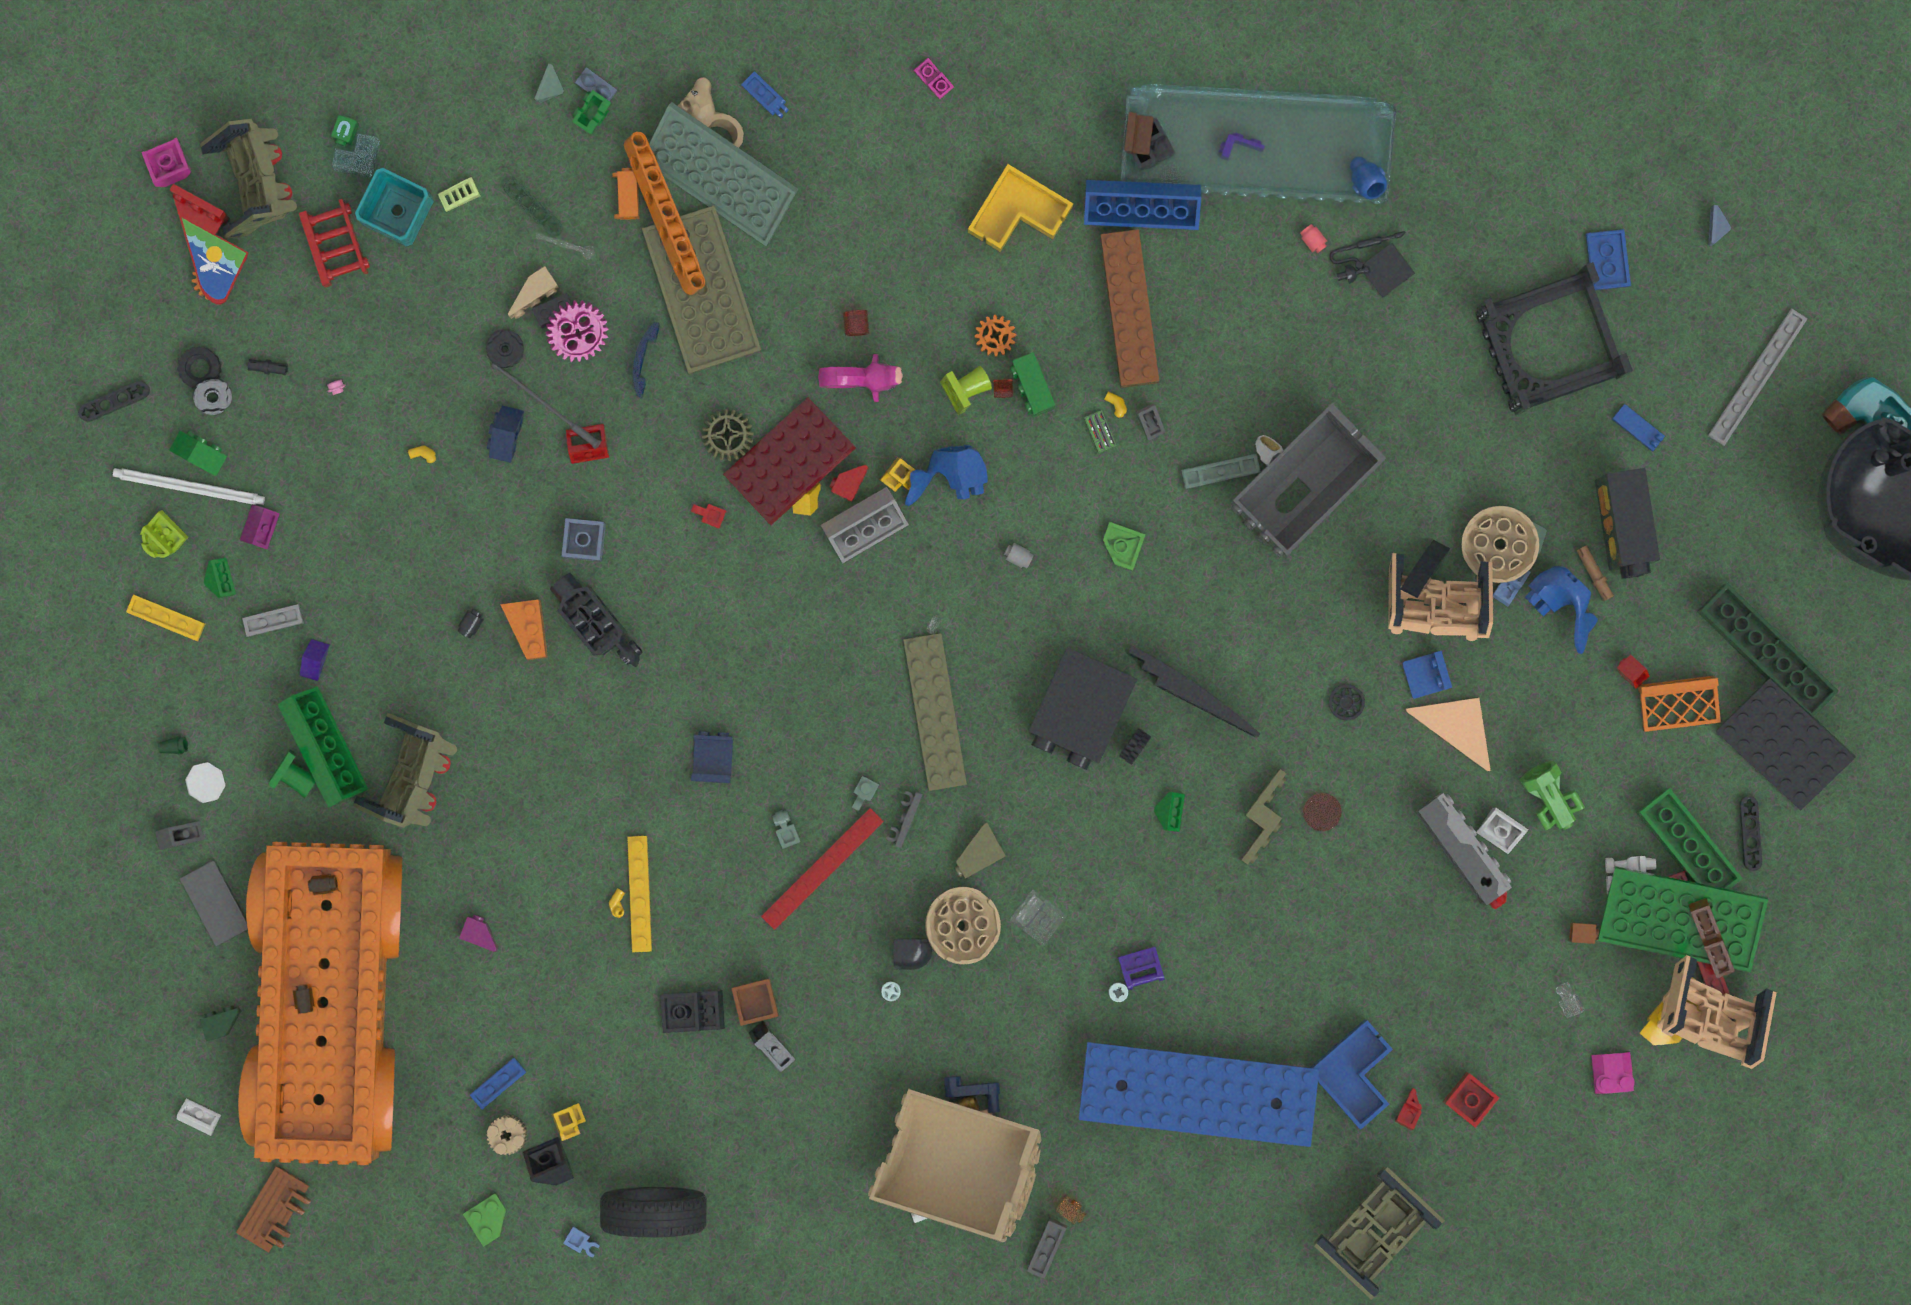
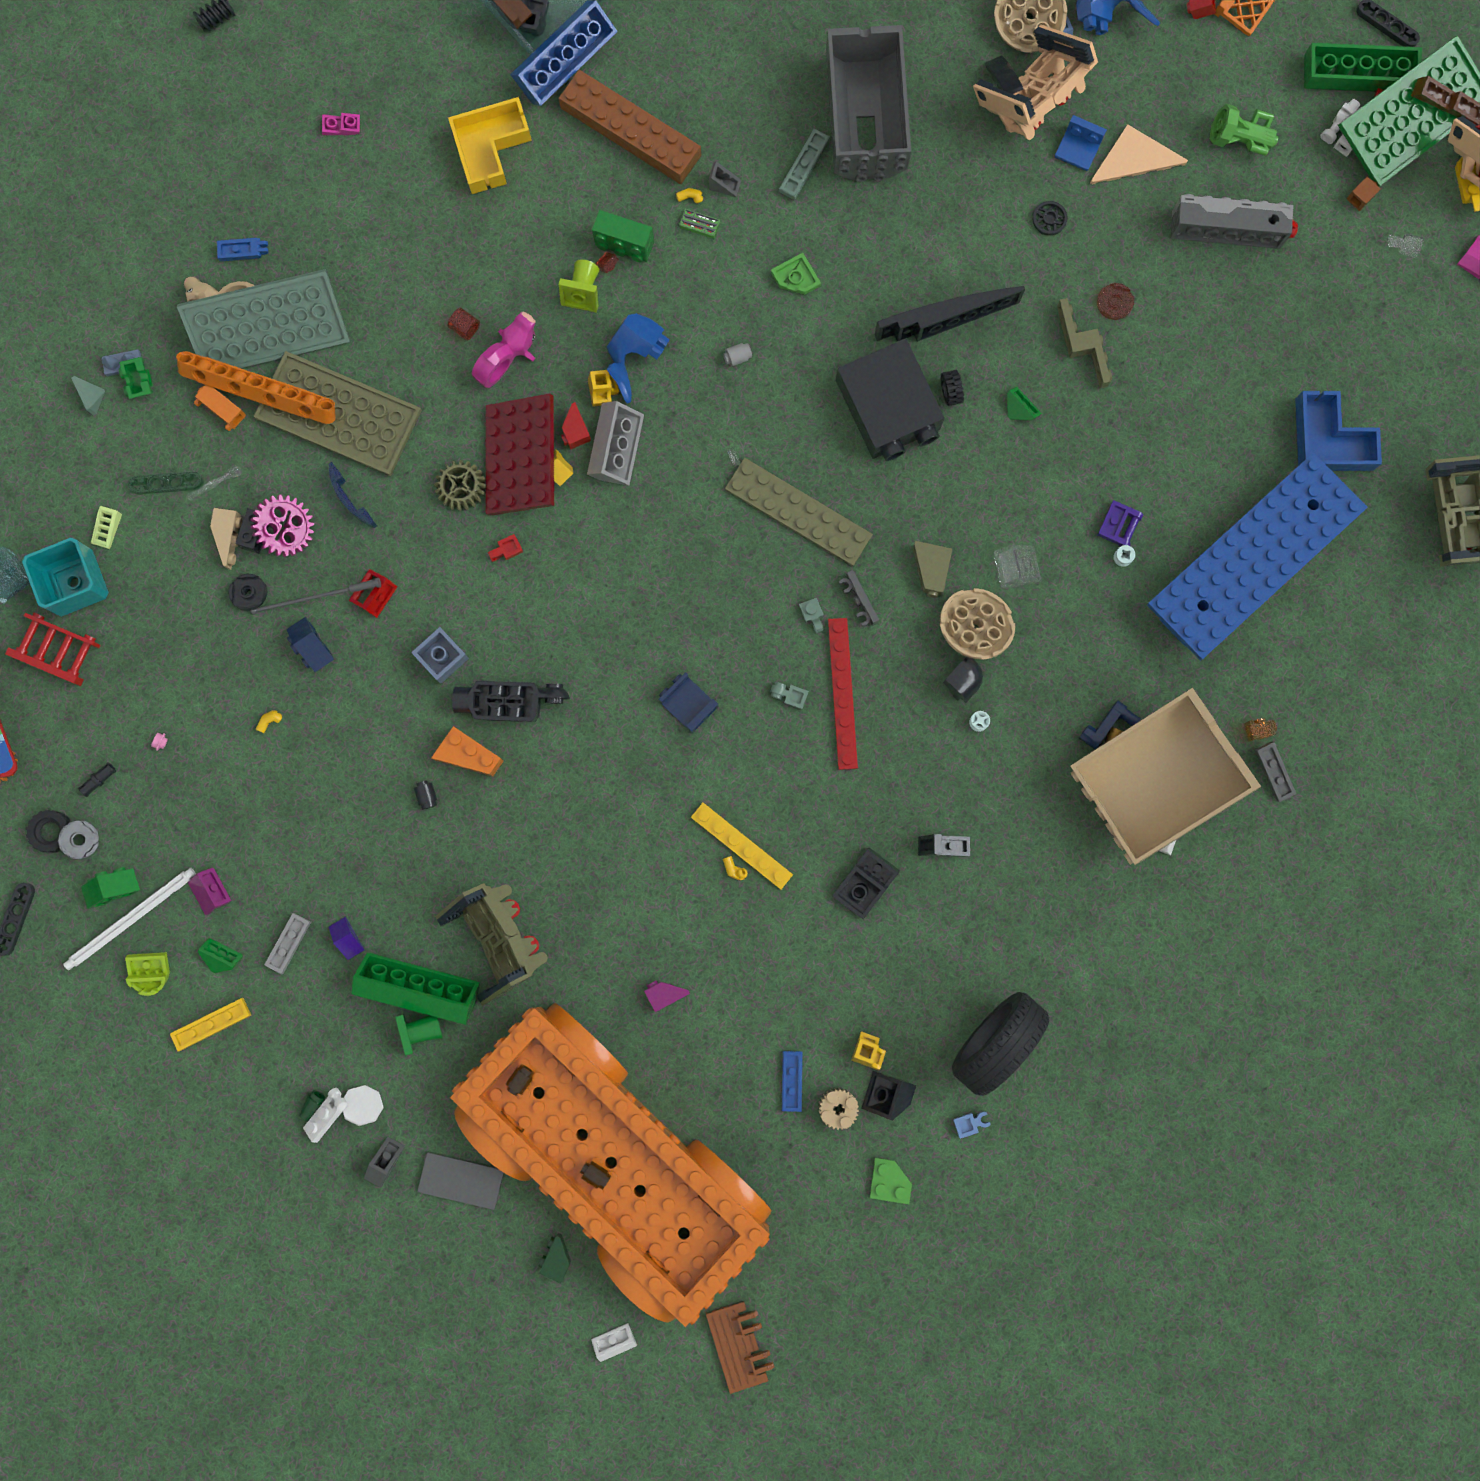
camera: 50 degrees left, 5 degrees down
(174, 763) = (325, 1115): none -> white plate
(755, 1001) = (900, 828): dark orange piece -> none
(987, 339) = (567, 242): orange gear -> none
(1267, 449) = (818, 118): white rock -> none
(1410, 1111) = (1392, 423): red slope -> none
(1471, 1099) = (1422, 370): red brick -> none
(1501, 830) = (1239, 183): white slope -> none

